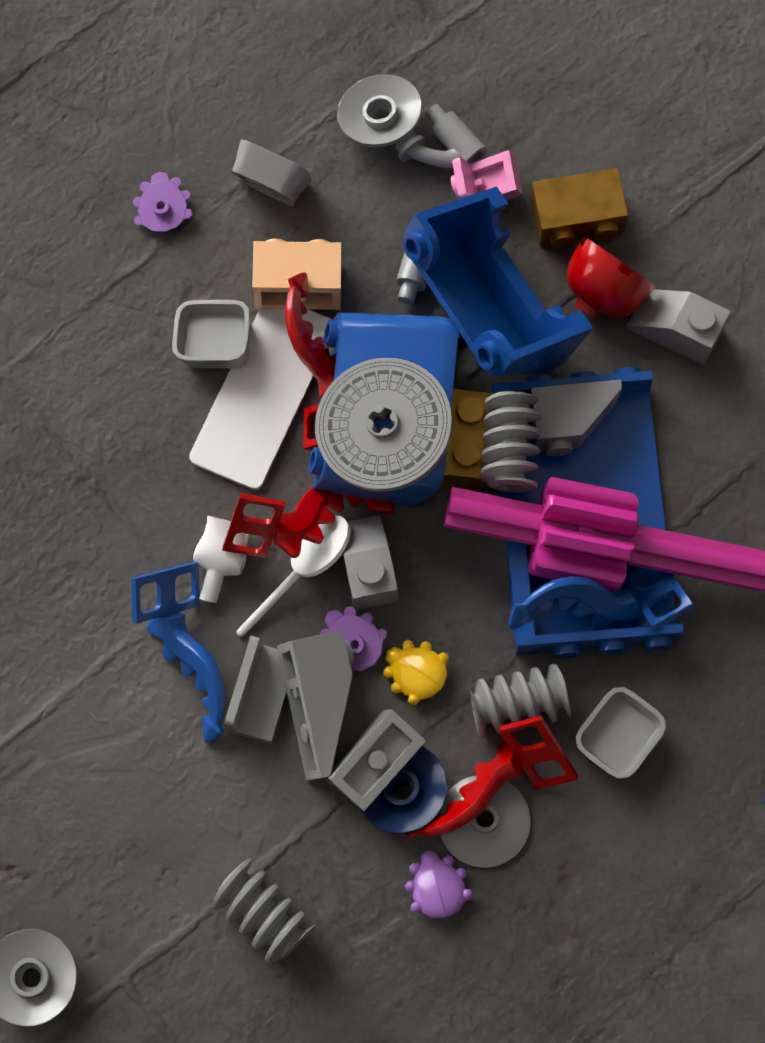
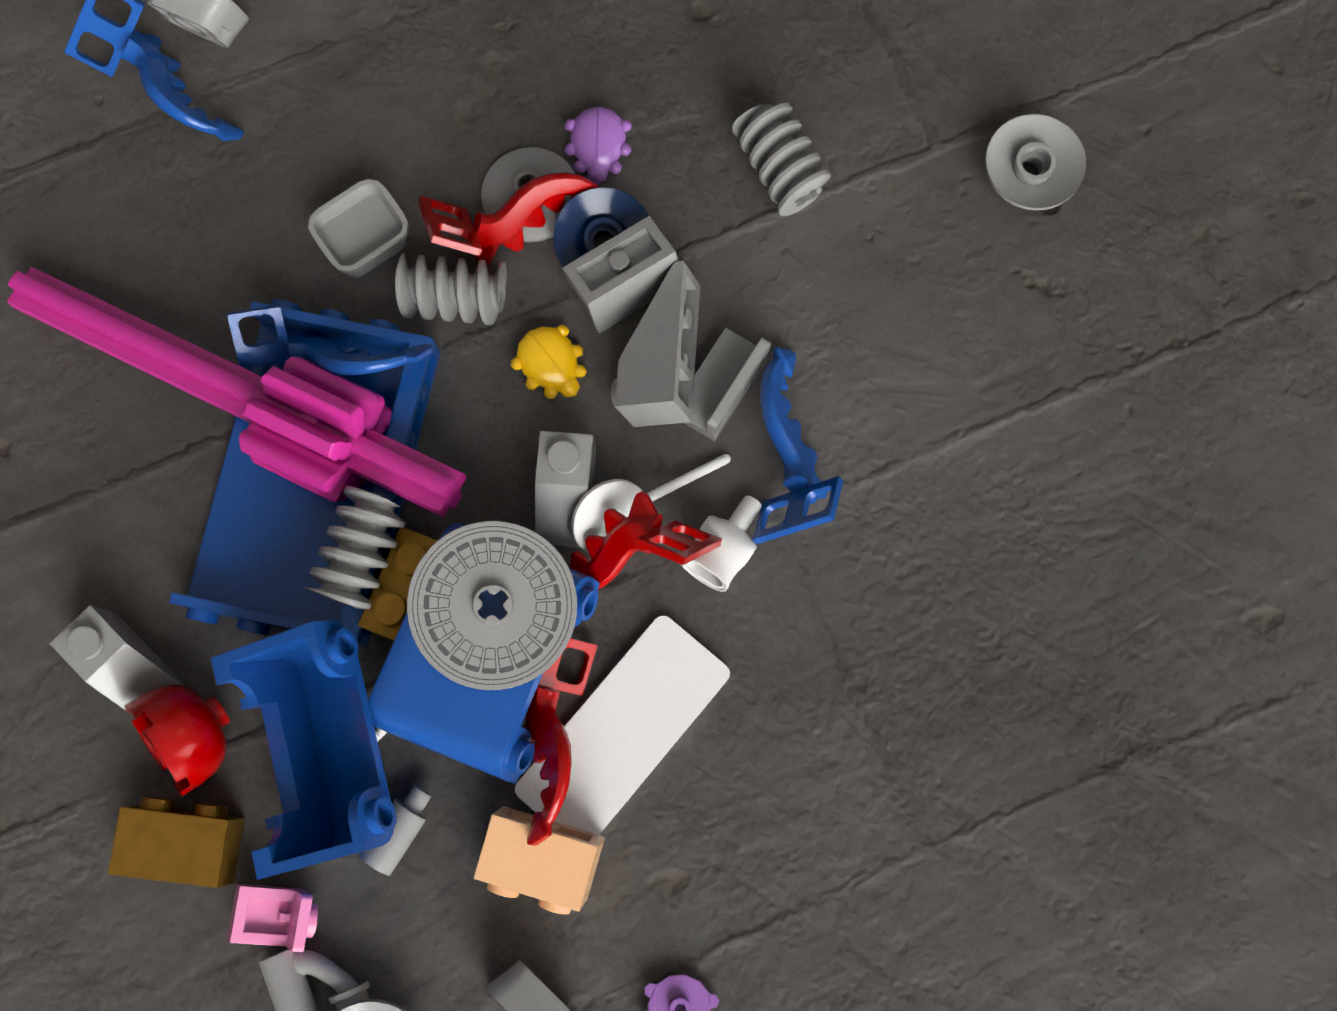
camera: 165 degrees left, 5 degrees up
(212, 333) = (662, 813): light grey piece -> none
(360, 633) = (600, 415): medium lavender piece -> none
(572, 413) = (276, 583): light grey slope -> none

